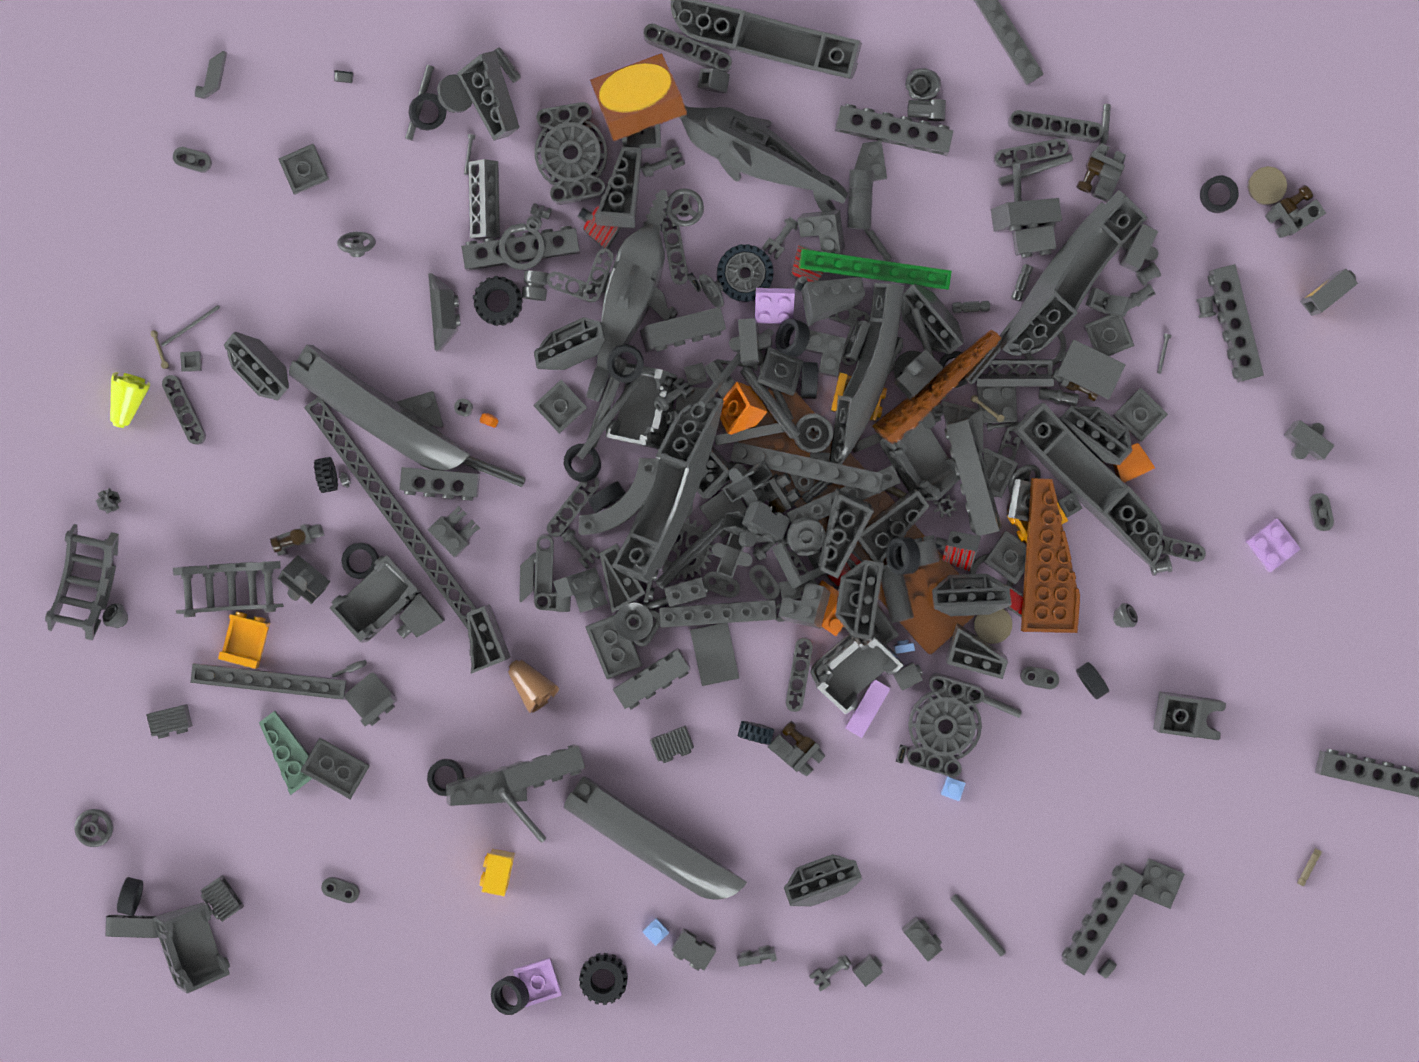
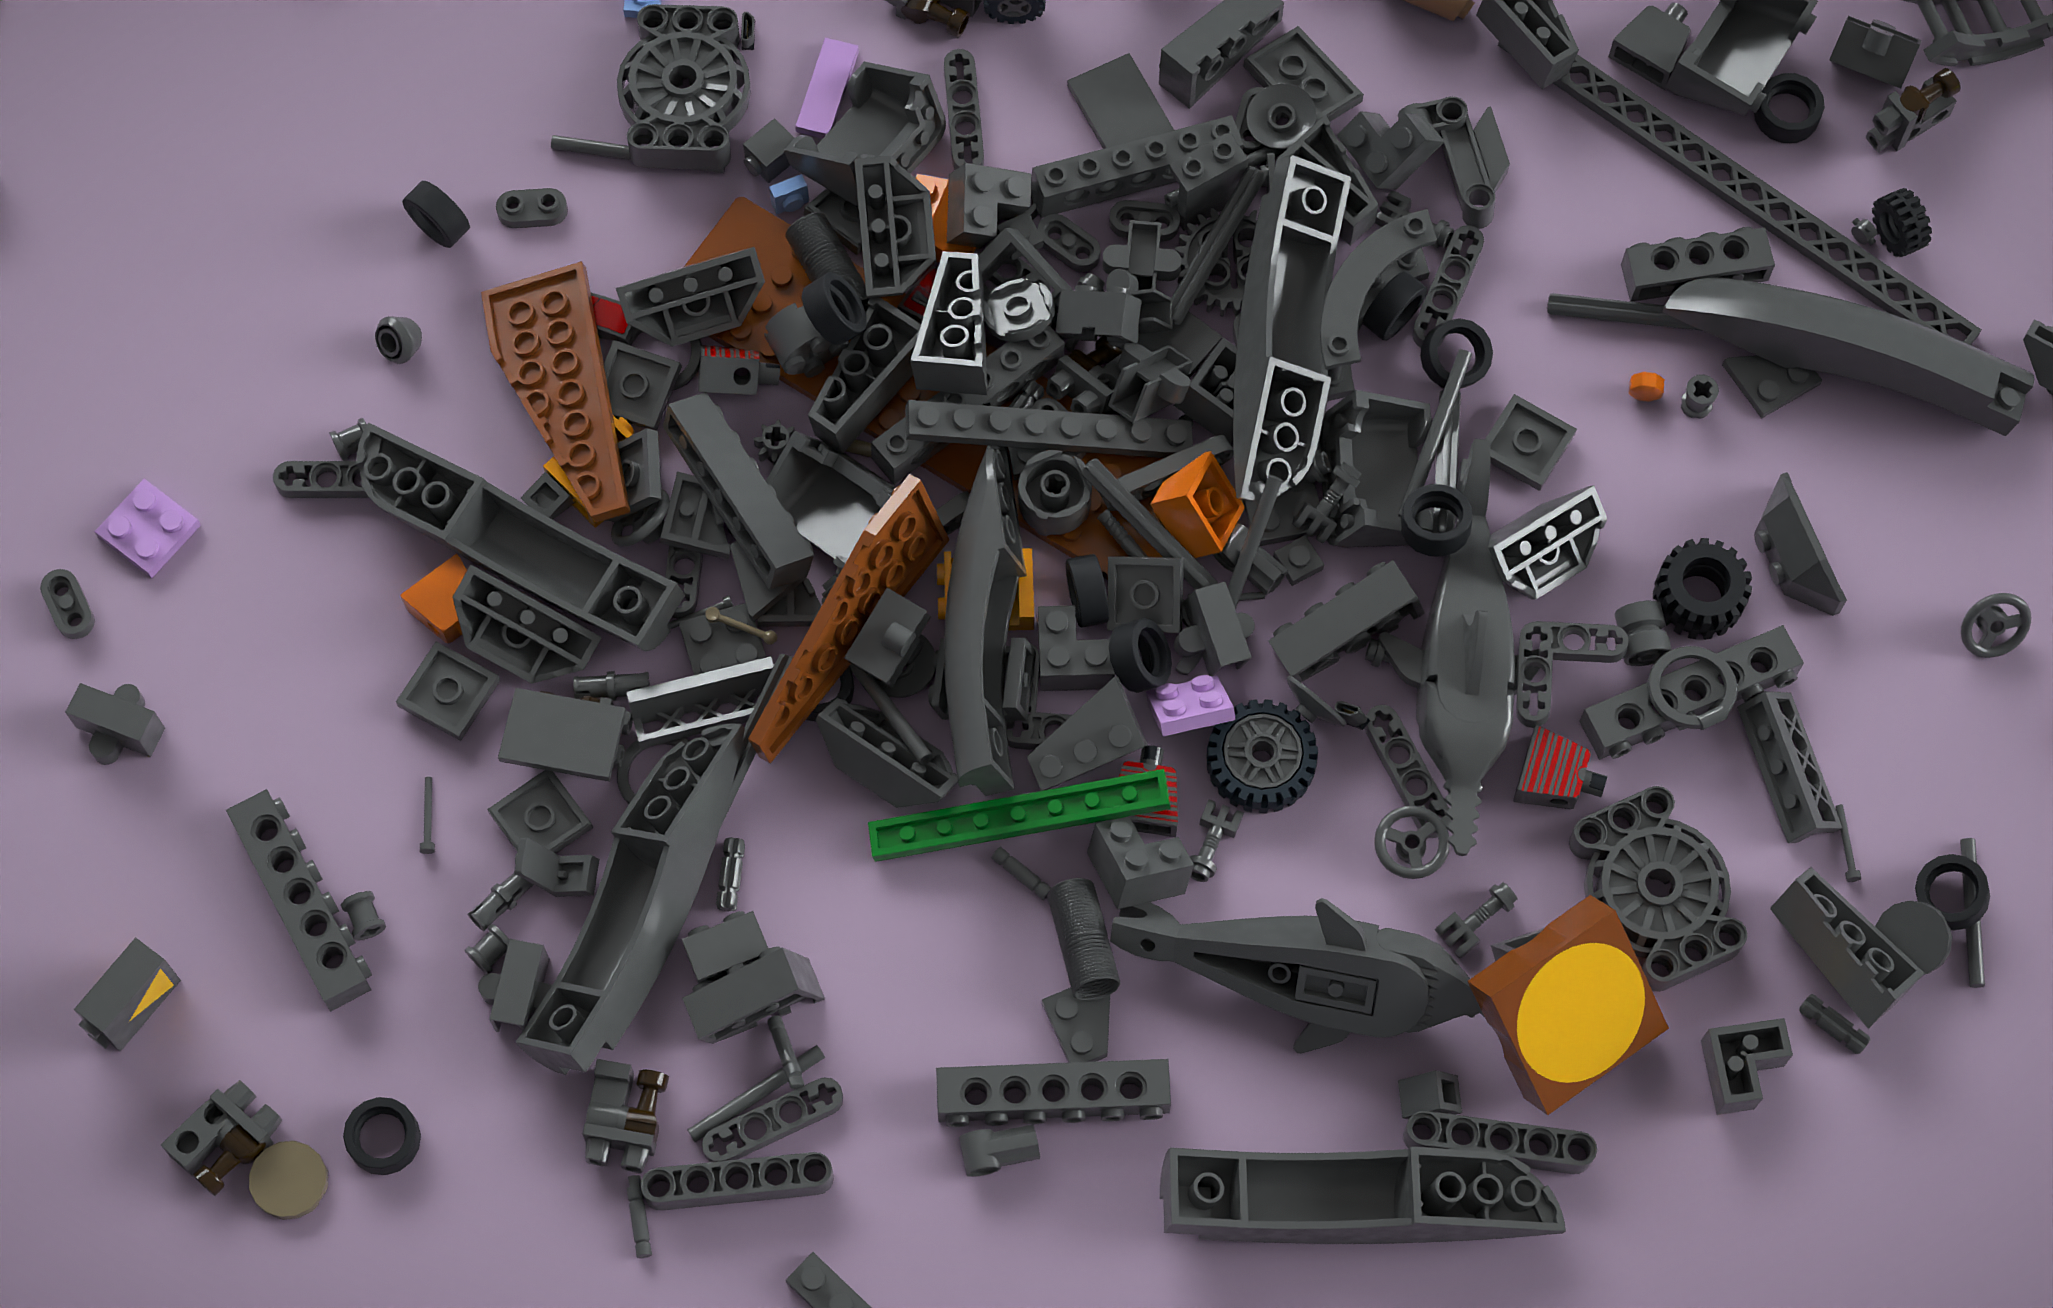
camera: 160 degrees right, 20 degrees down
(448, 536) = (1649, 181): dark grey brick -> none
(534, 222) = (1684, 727): dark grey hinge -> none
(560, 59) = (1735, 1056): none -> dark grey brick
(621, 195) = (1539, 832): dark grey wedge -> none
(923, 84) = (1020, 1193): dark grey hair -> none
(973, 306) = (817, 805): dark grey axle -> none
(975, 654) = (657, 207): dark grey wedge -> none
(993, 627) = (633, 262): dark tan tile -> none
(1192, 715) = (251, 201): dark grey brick -> none

